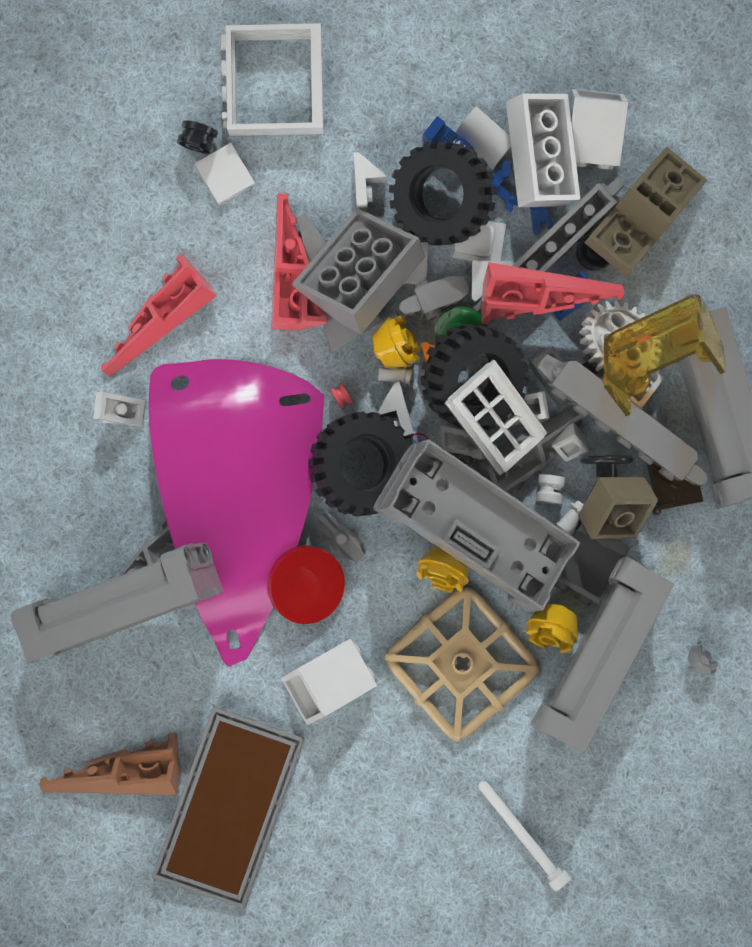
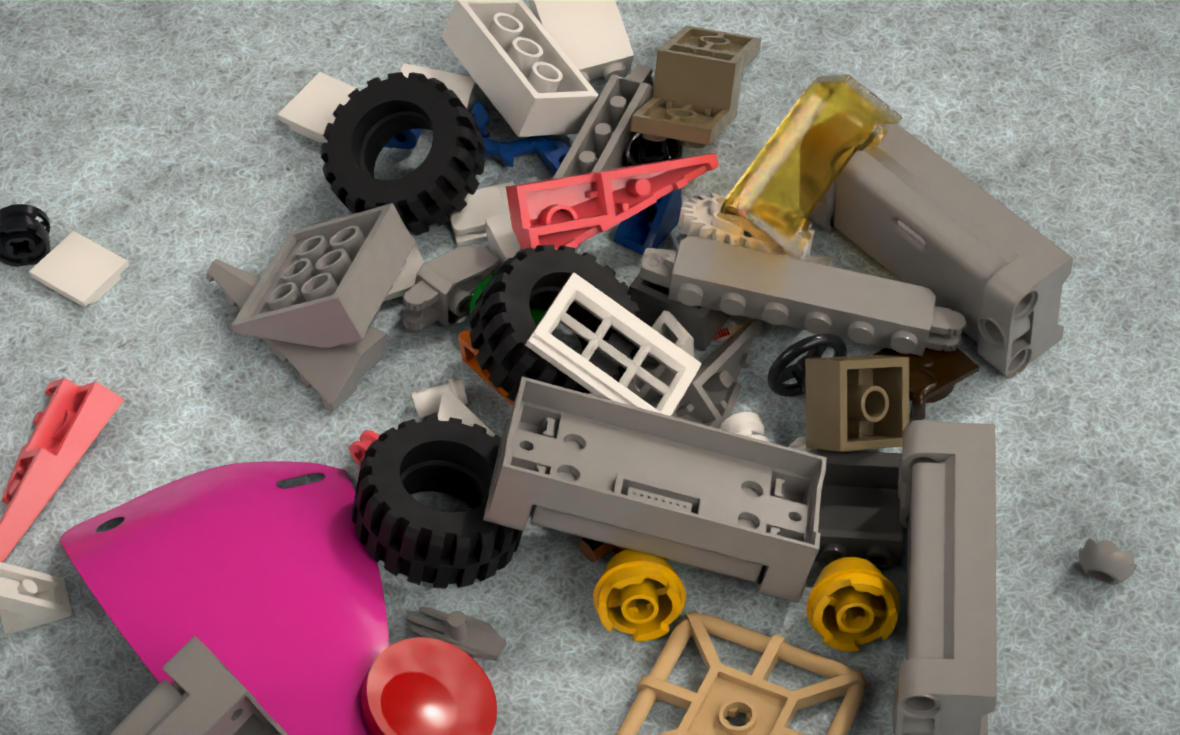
camera: 20 degrees left, 35 degrees down
(228, 69) = (91, 96): white window -> none
(290, 307) = (243, 369): coral wedge -> none
(365, 174) = (288, 194): white slope -> none
(395, 343) = (420, 351): yellow cone -> none
(416, 107) = (314, 106): none -> white piece
(570, 443) = (743, 378): white slope -> none

